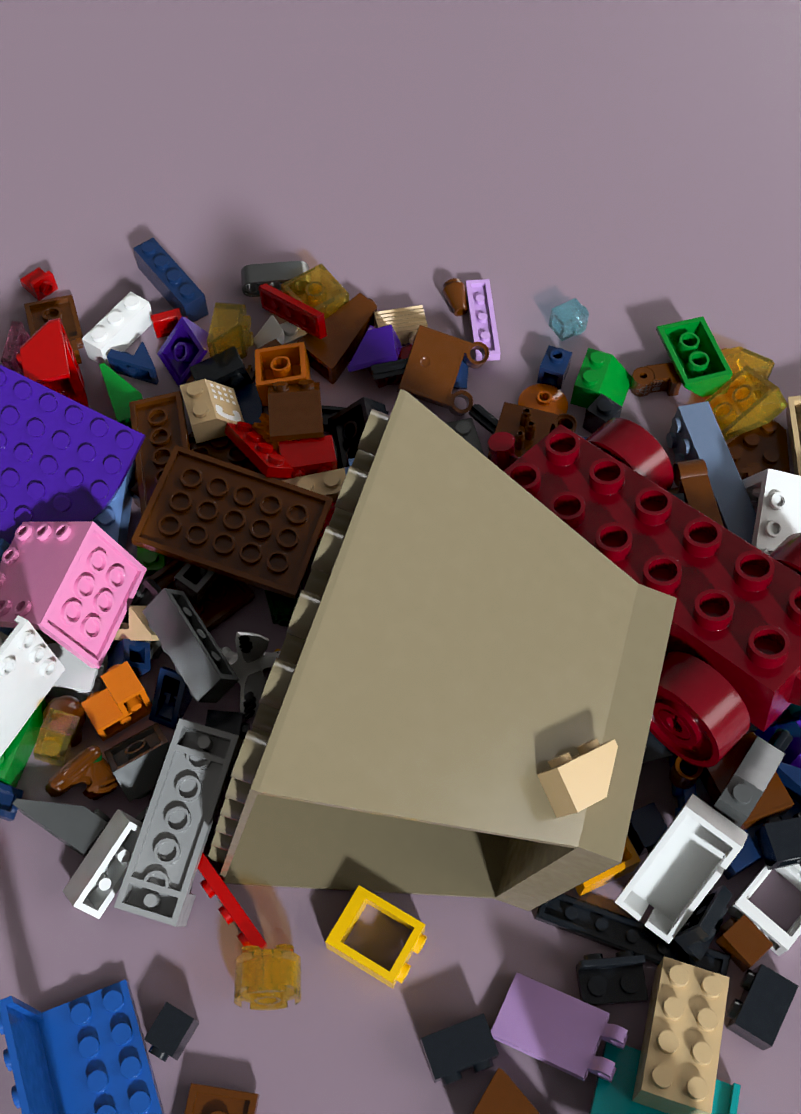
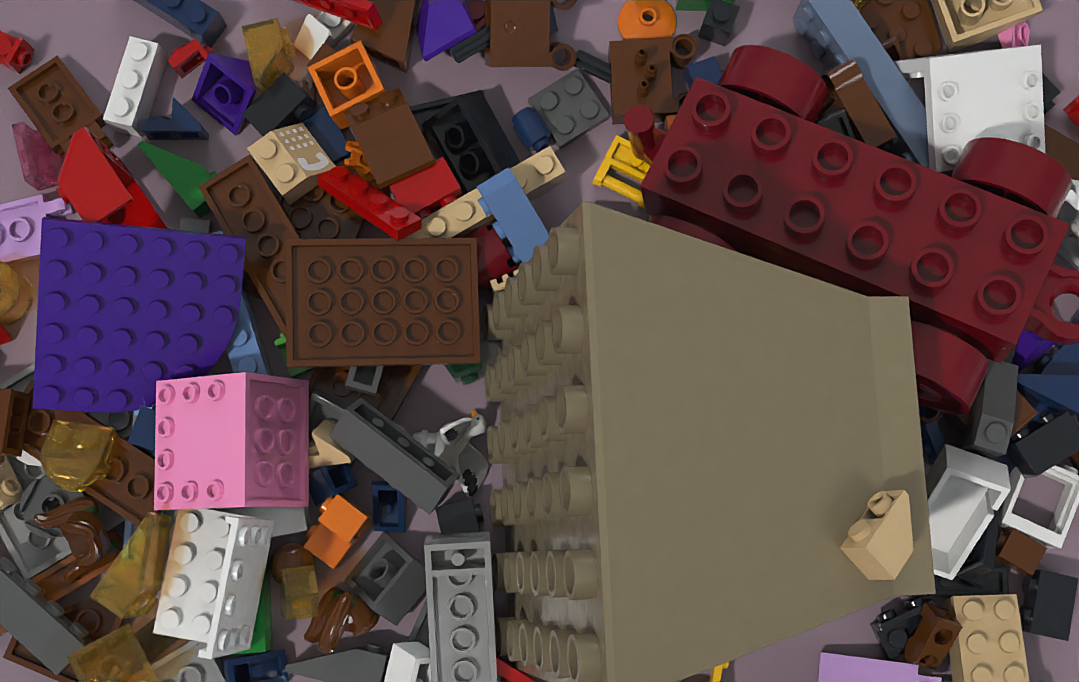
camera: 20 degrees left, 20 degrees up
(630, 990) = (933, 637): none -> reddish brown leg

